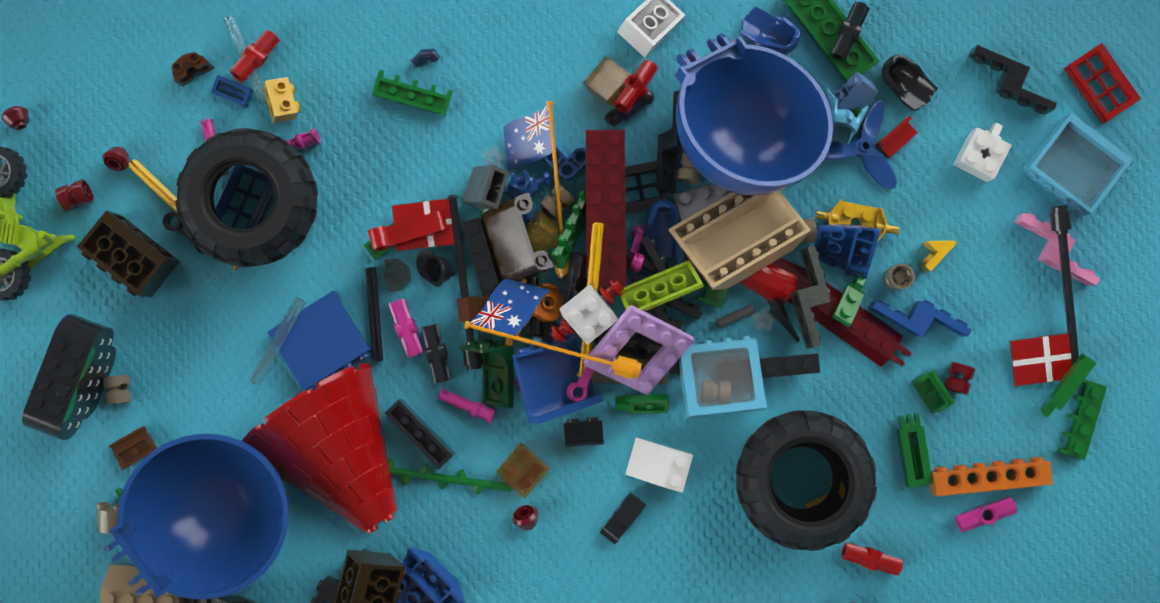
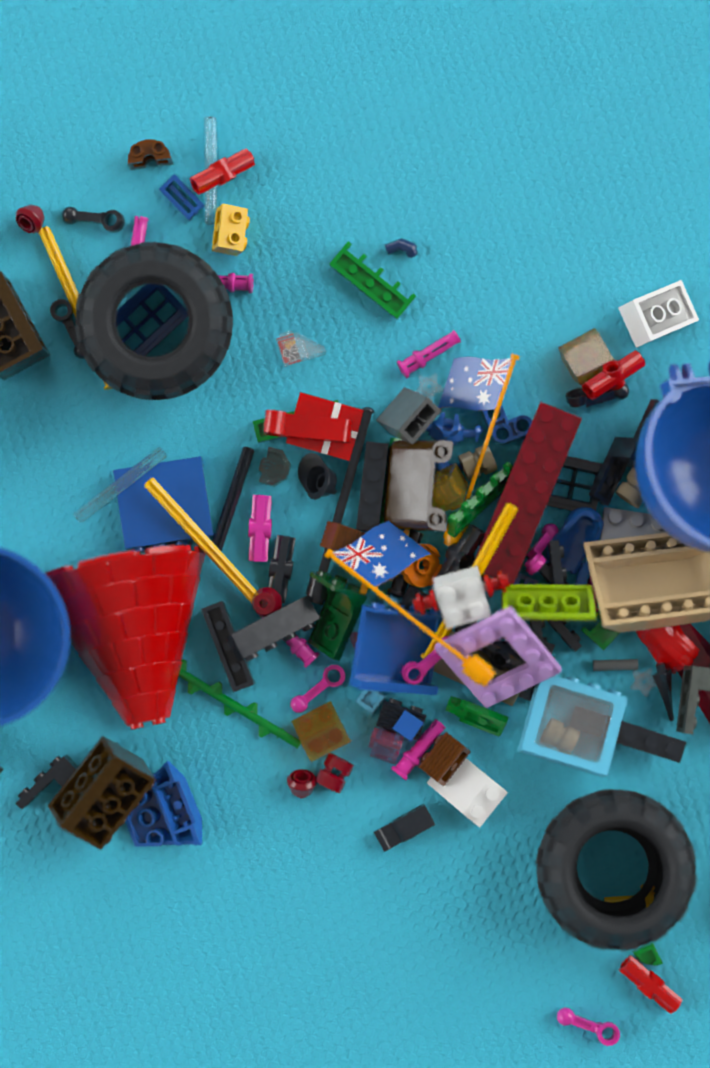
camera: 25 degrees right, 0 degrees up
(149, 142) = (72, 215): none -> black piece
(369, 360) = (200, 538): none -> yellow axle
(375, 172) = (297, 348): none -> clear slope
(435, 385) = (266, 601): none -> dark red cone
(448, 404) = (272, 628): none -> black brick
(478, 141) = (417, 356): none -> dark pink pin
(497, 454) = (300, 703): none -> dark pink piece
(548, 505) = (331, 780): none -> dark red wheel
(552, 427) = (370, 700): none -> medium azure tile
(579, 458) = (385, 745): none -> cylinder
(590, 435) = (407, 725): none -> blue tile
(605, 459) = (412, 757): none -> dark pink pin
(631, 449) = (444, 758): none -> reddish brown brick
(860, 536) = (648, 954): none -> green tile

